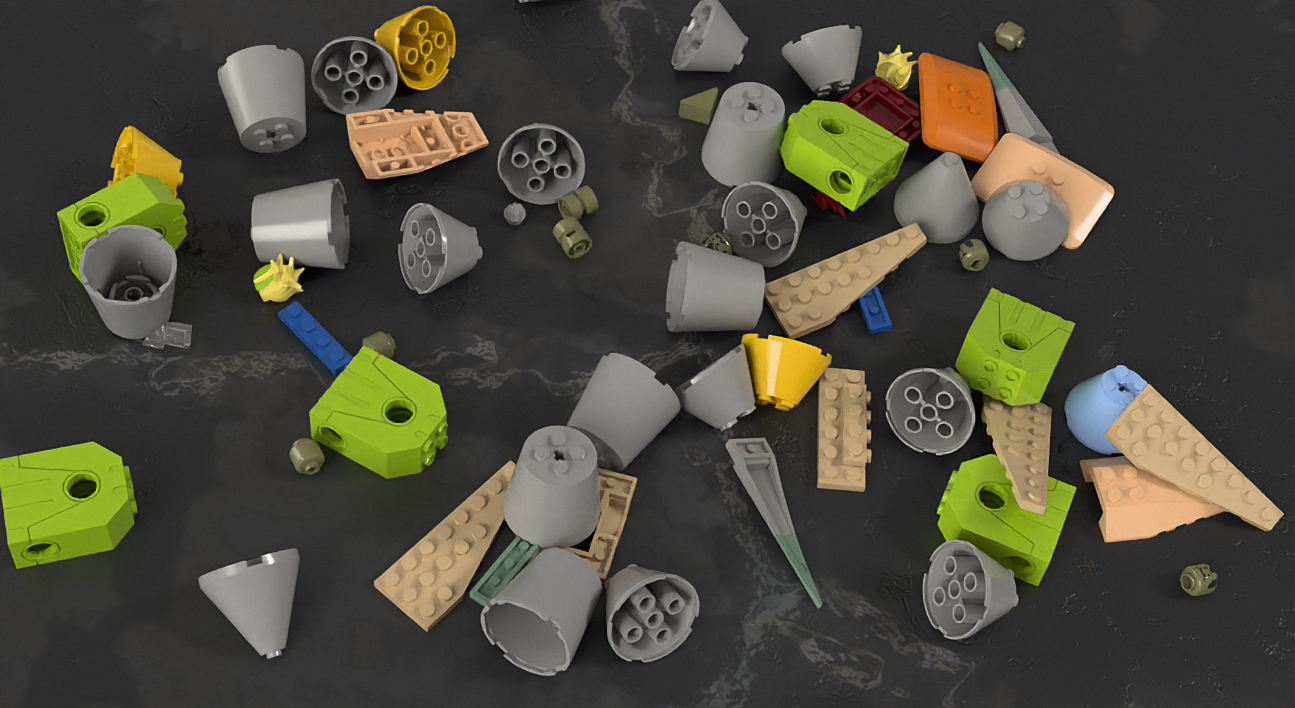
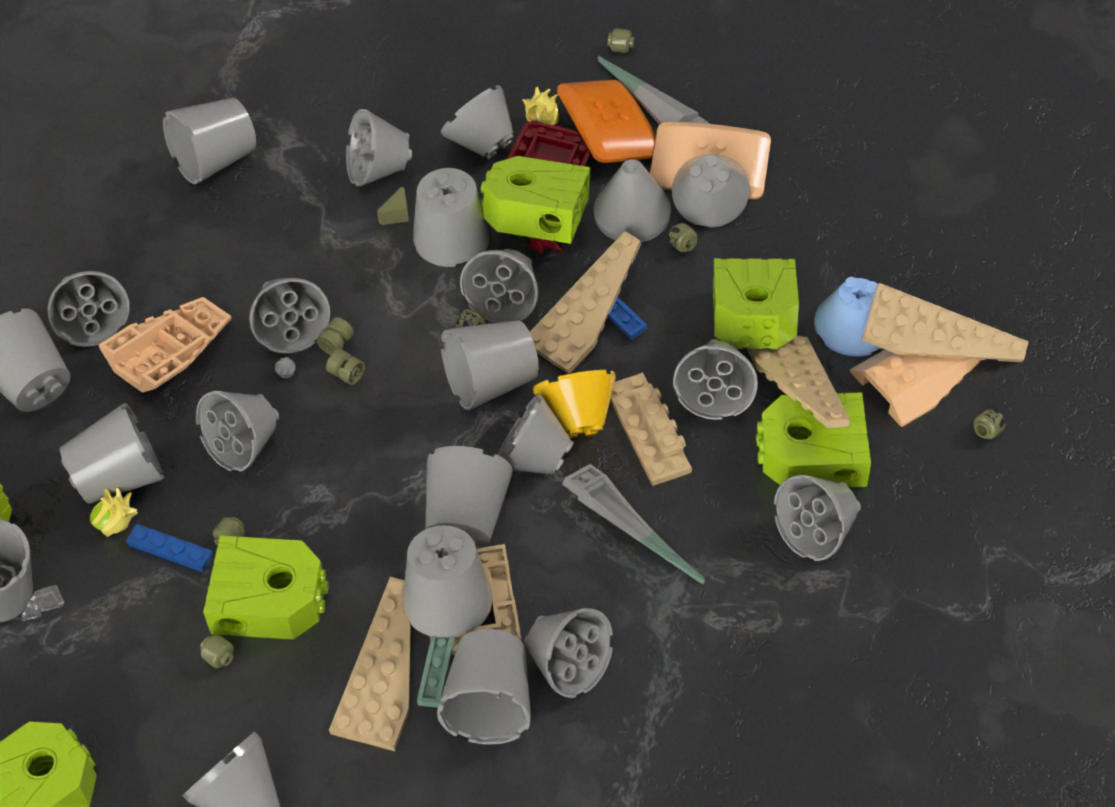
camera: 15 degrees left, 0 degrees up
(419, 45) = (130, 256): yellow cone -> none

